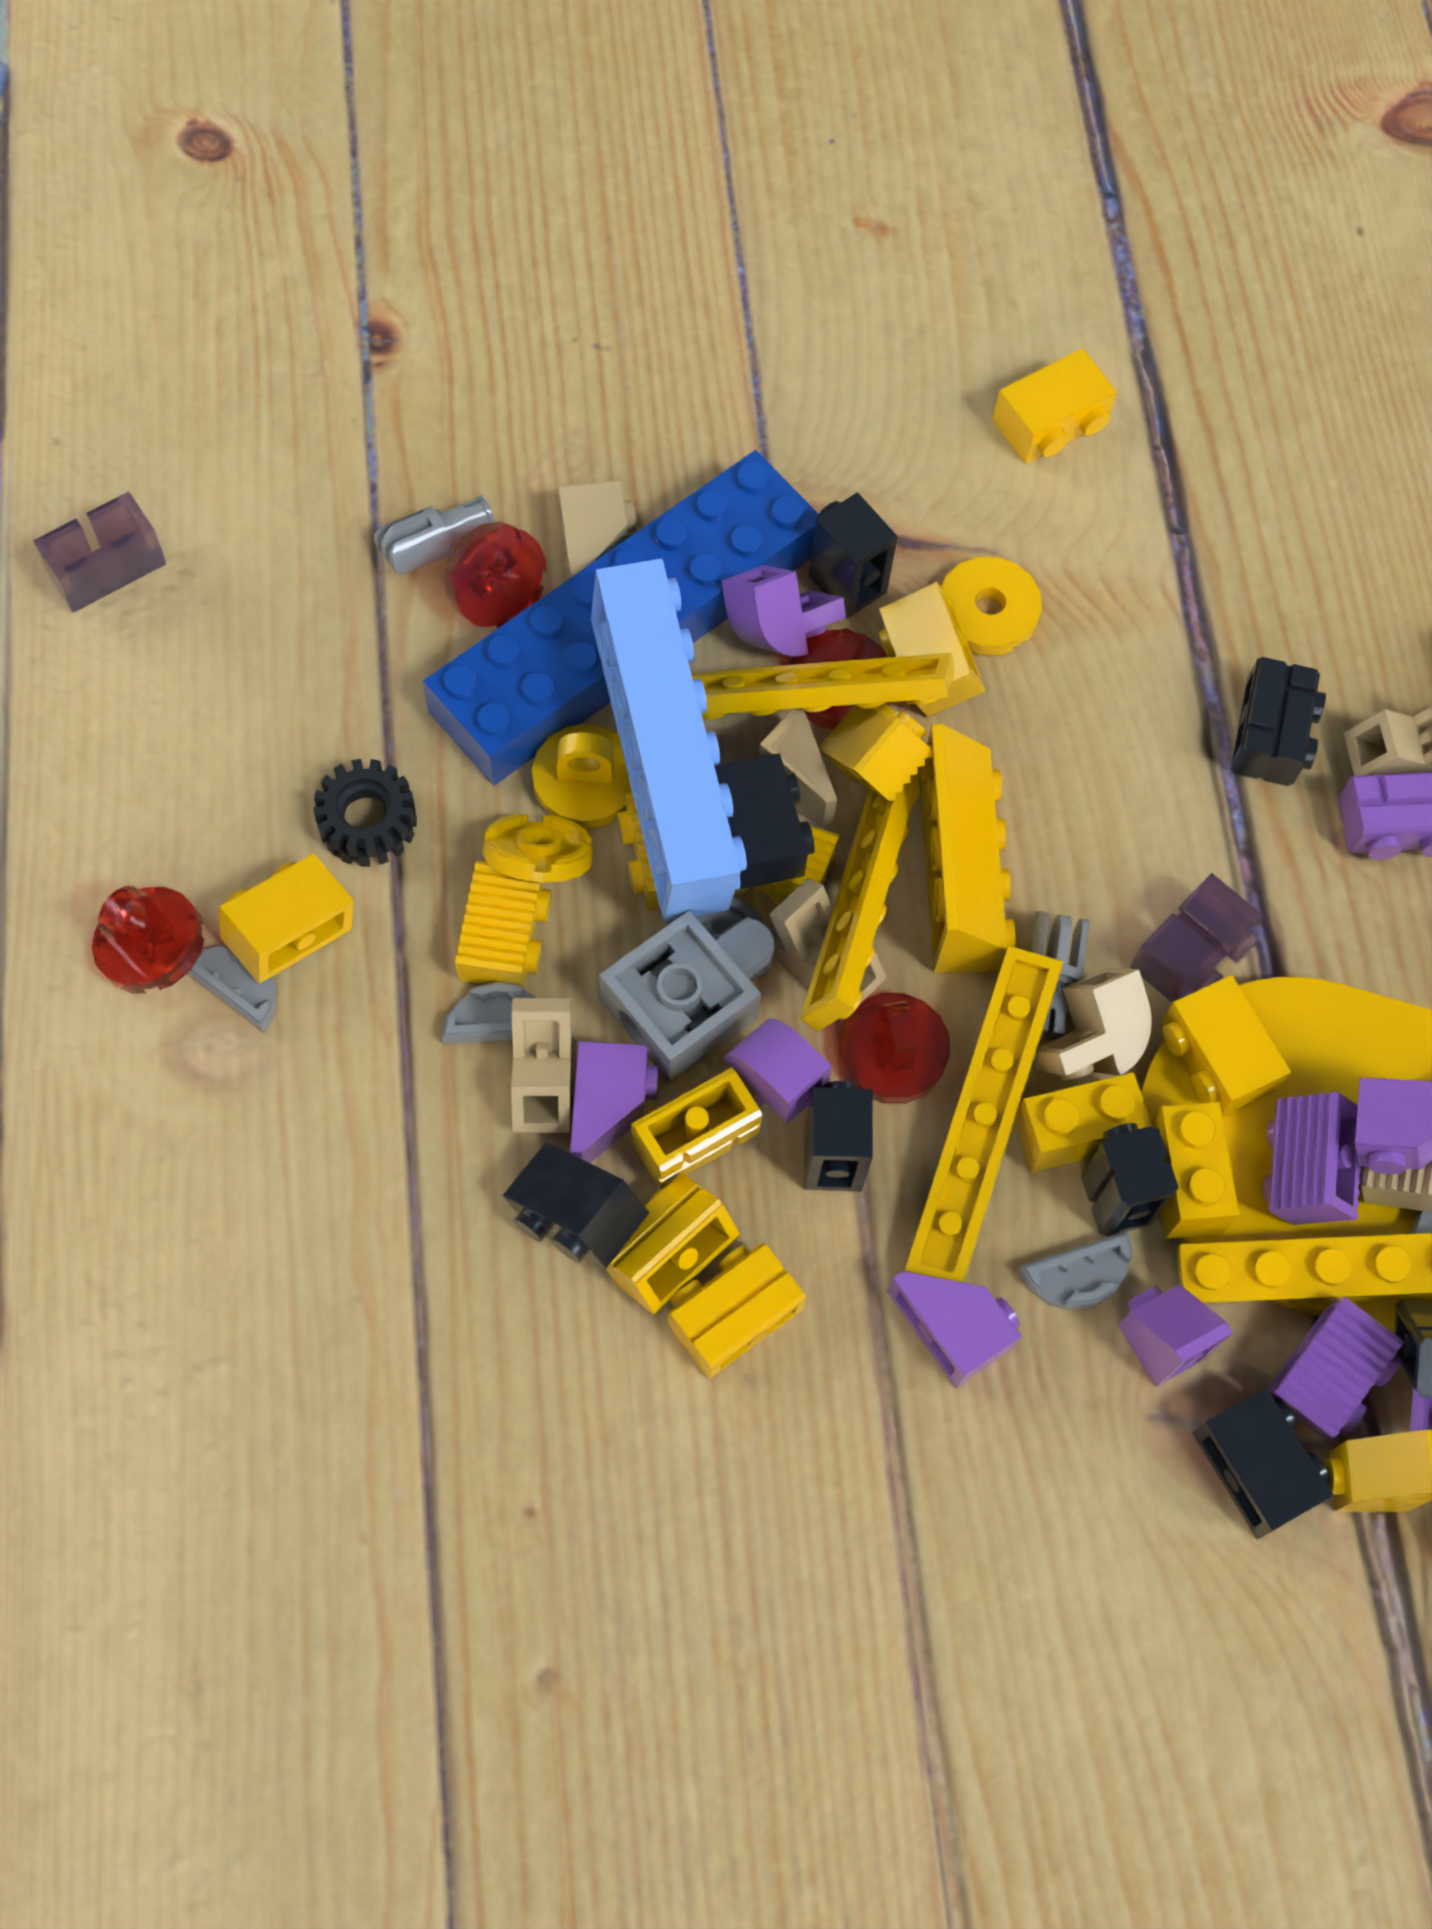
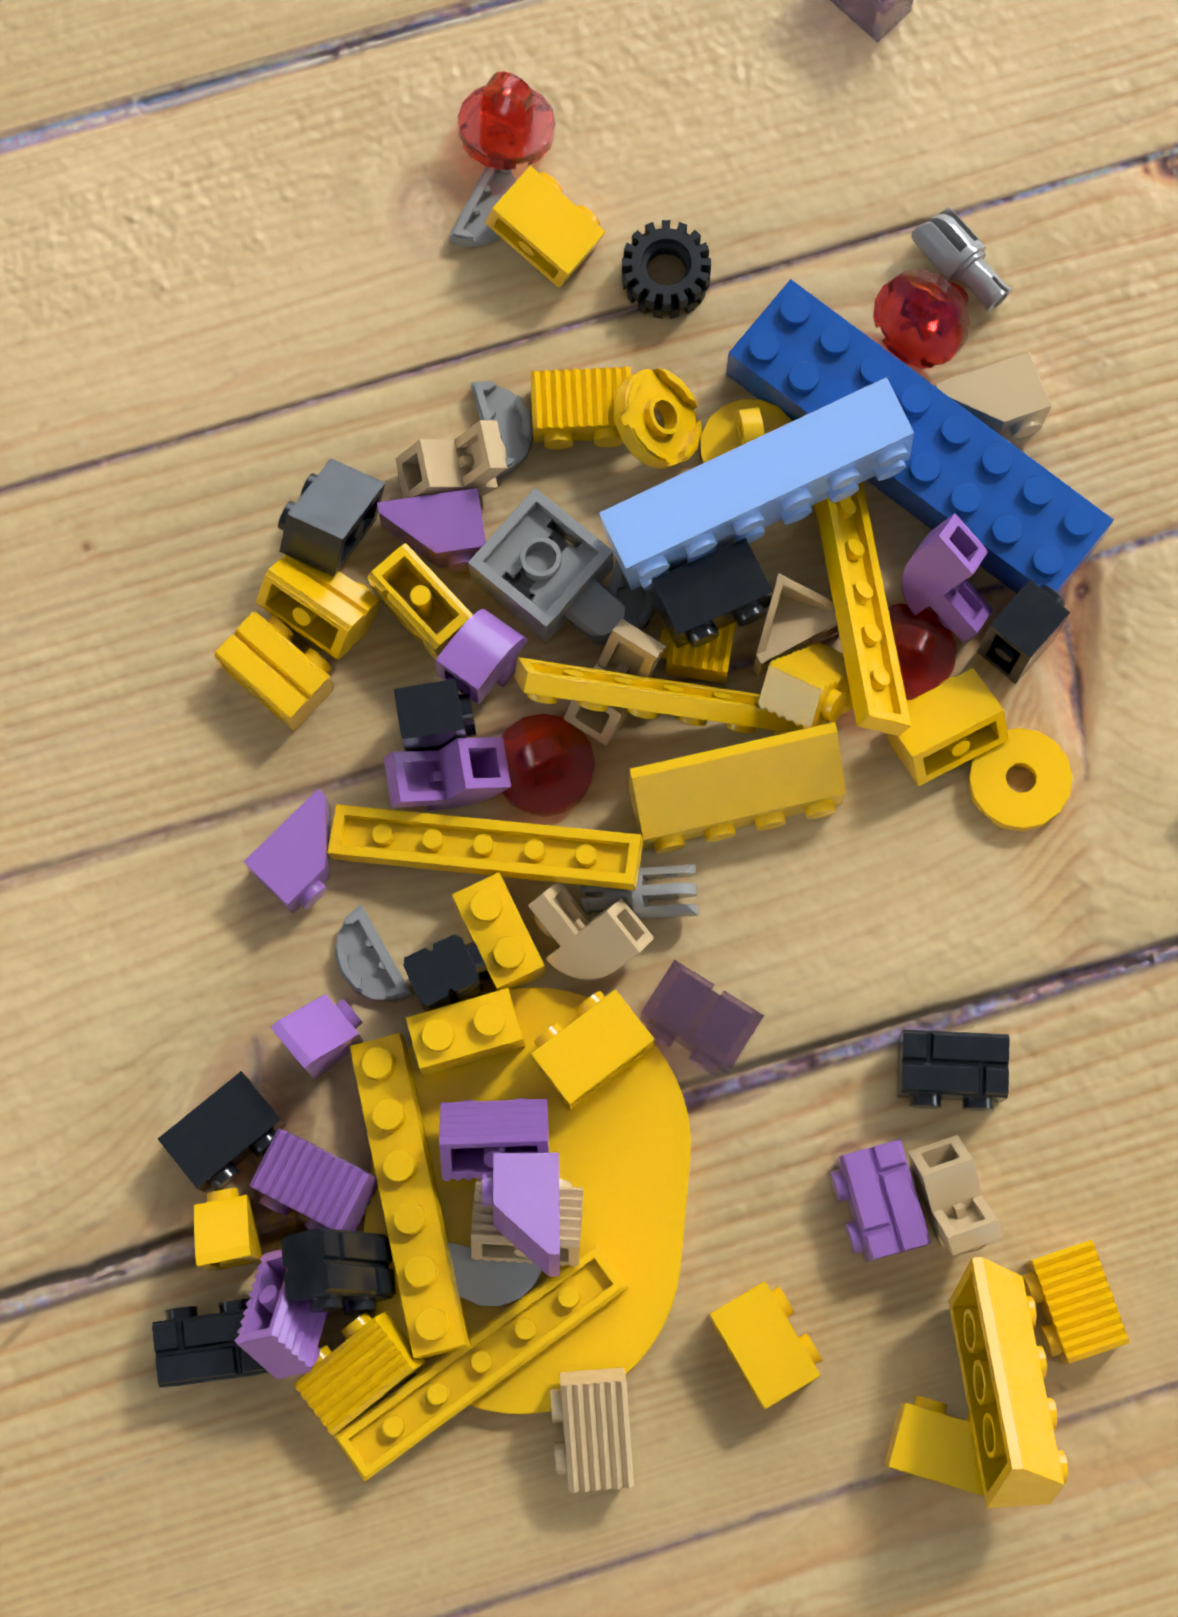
camera: 85 degrees right, 10 degrees up
(899, 1136) = (450, 777): none -> medium lavender brick

